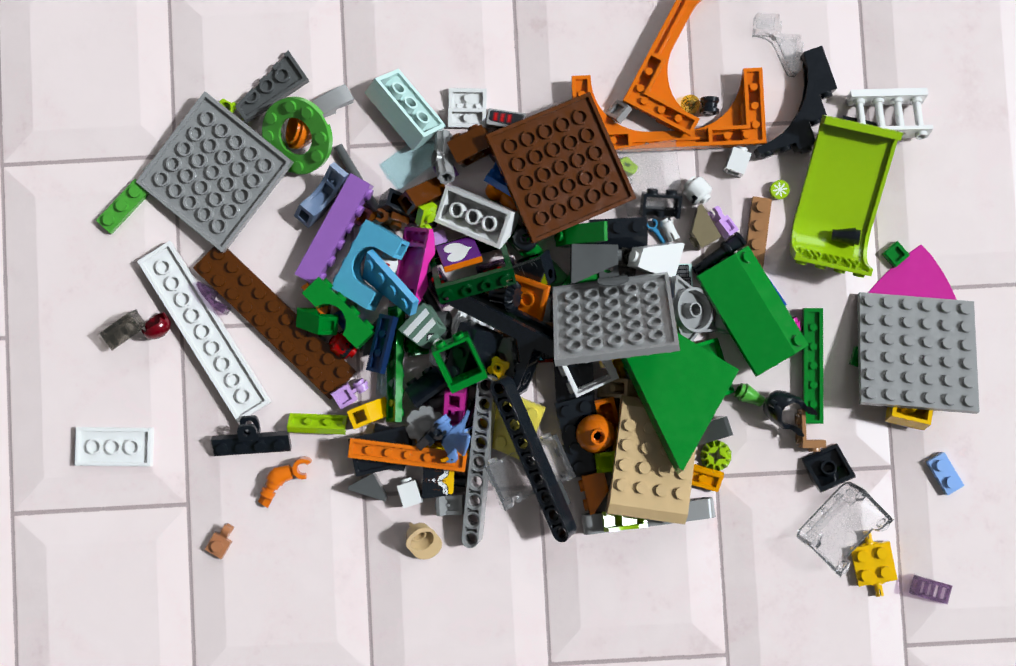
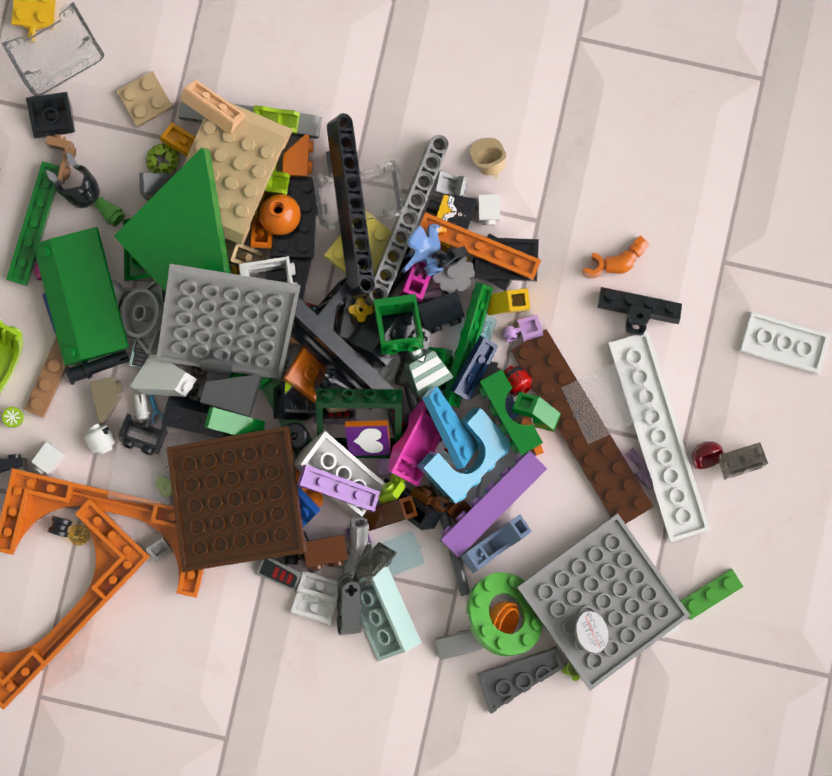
camera: 170 degrees left, 0 degrees up
(215, 139) = (591, 632): none -> piece
(220, 543) = (699, 213): nougat plate -> none
(256, 350) = (608, 400): none -> clear piece
(317, 423) = (565, 306): lime plate -> none
(370, 487) = (528, 226): dark grey slope -> none
(423, 147) = (374, 562): none -> clear smoke hinge
(436, 106) = (348, 606): none -> dark grey piece
(472, 201) = (338, 488): none -> plate
(685, 513) = (212, 106): none -> light nougat slope
(723, 223) = (81, 396): lavender plate -> none
(748, 506) = (145, 99): none -> tan plate

